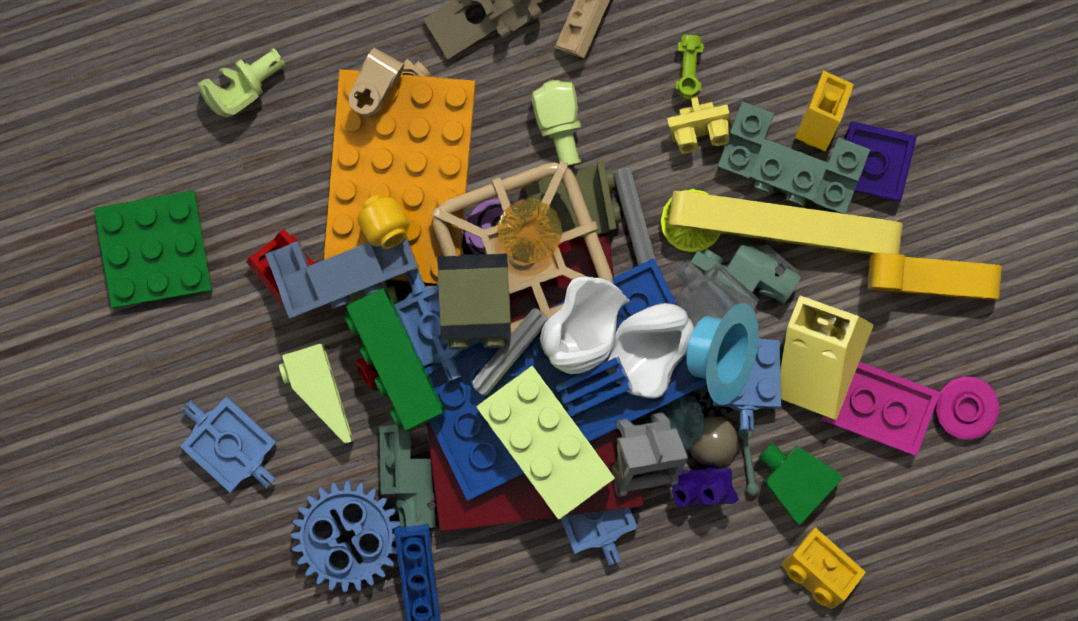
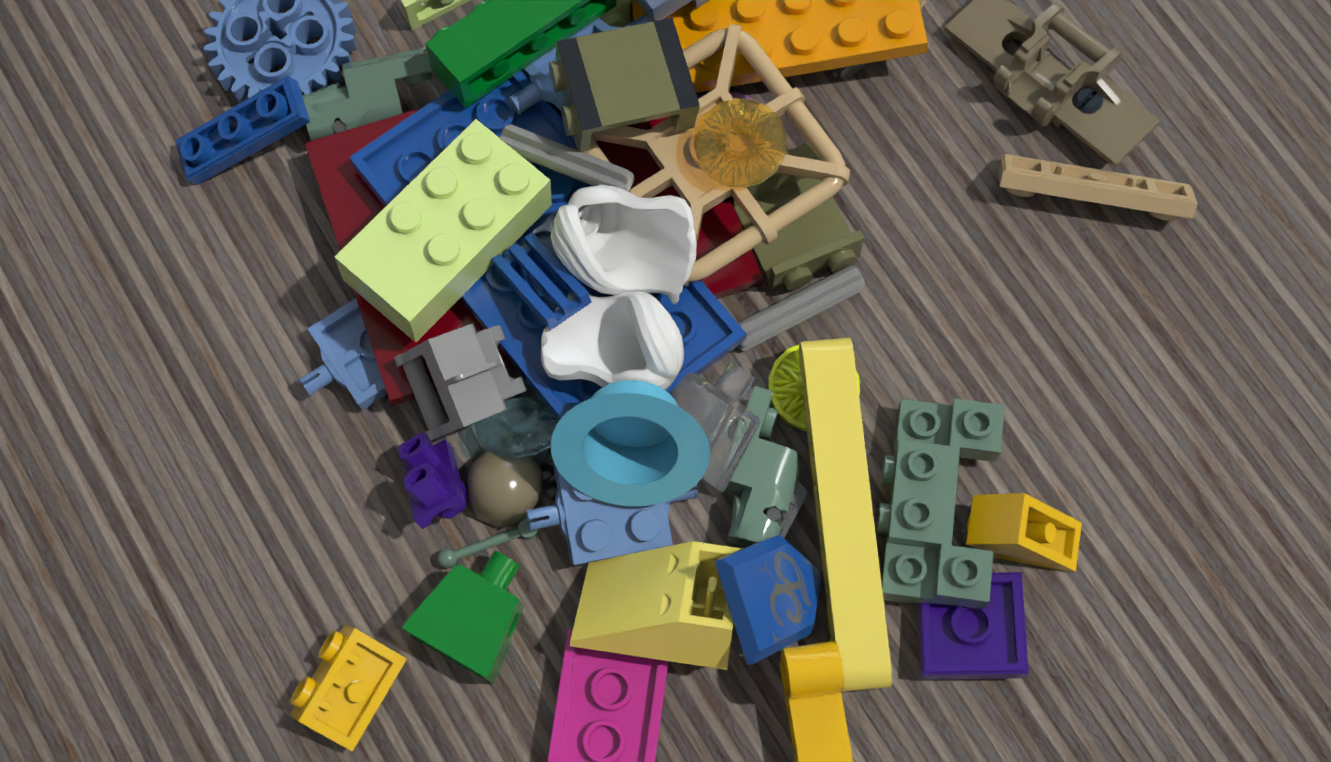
camera: 80 degrees right, 15 degrees down
(556, 117) = (907, 165): yellowish green piece -> none
(689, 84) = (1006, 332): lime bar -> none
(700, 121) = (955, 359): light yellow hips -> none
(835, 285) = (769, 595): none -> blue tile

